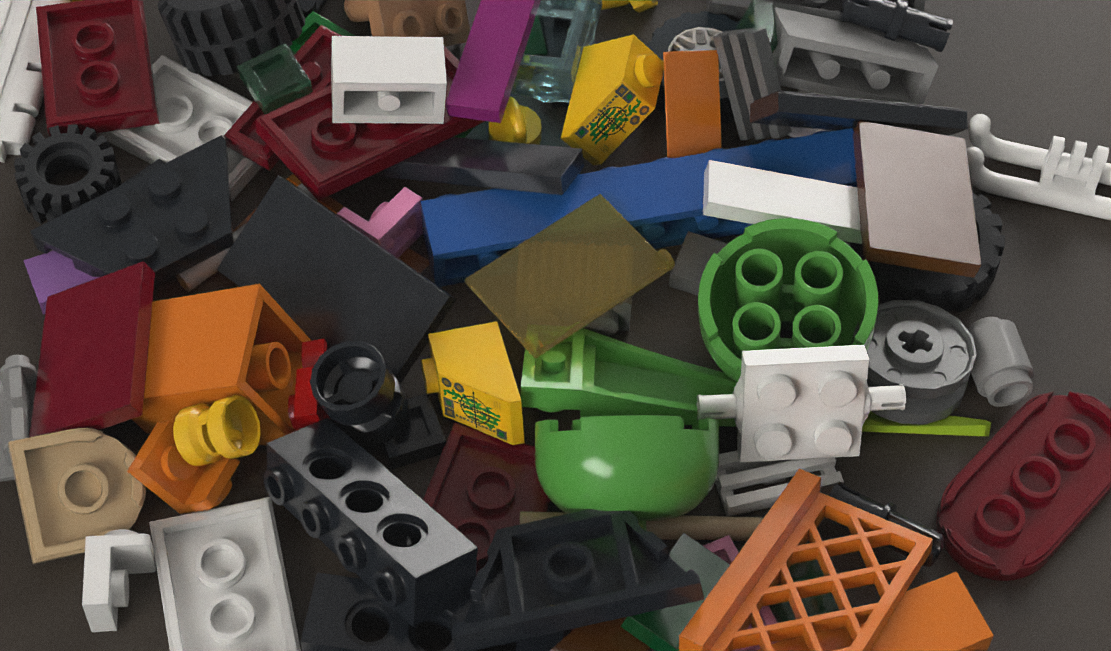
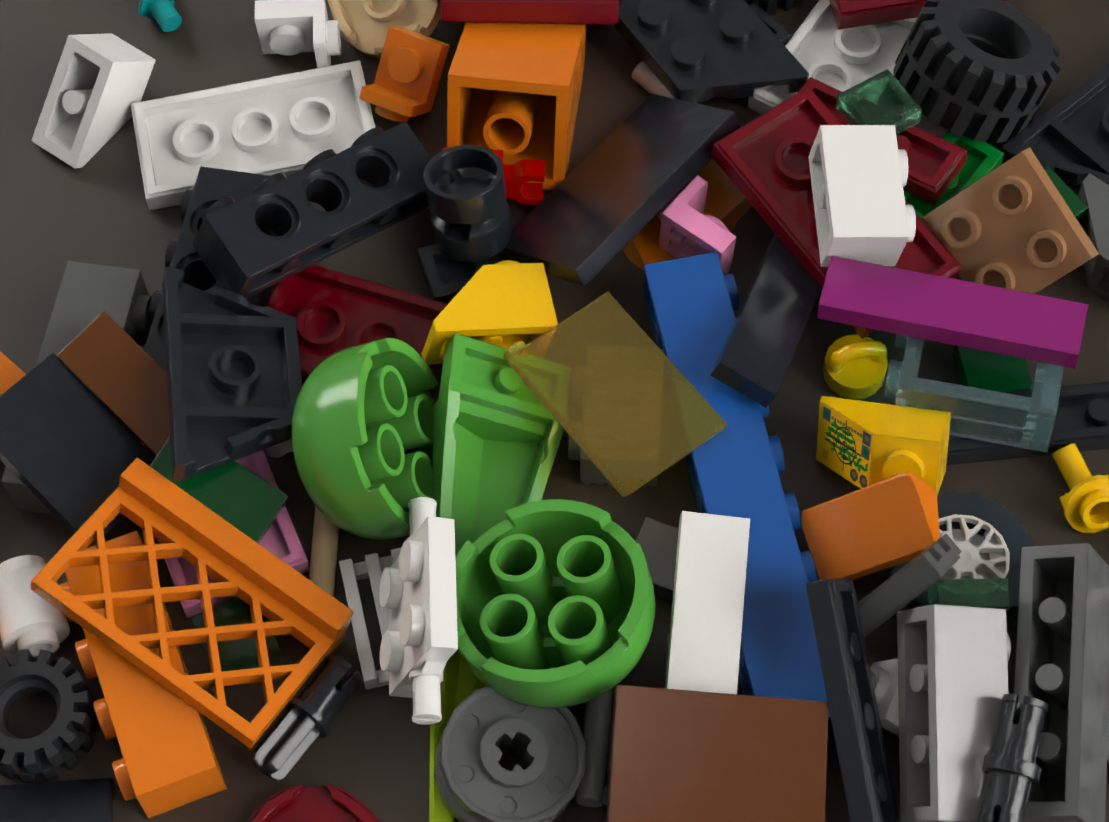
camera: 95 degrees right, 5 degrees up
(224, 429) = (413, 91): yellow wheel -> none

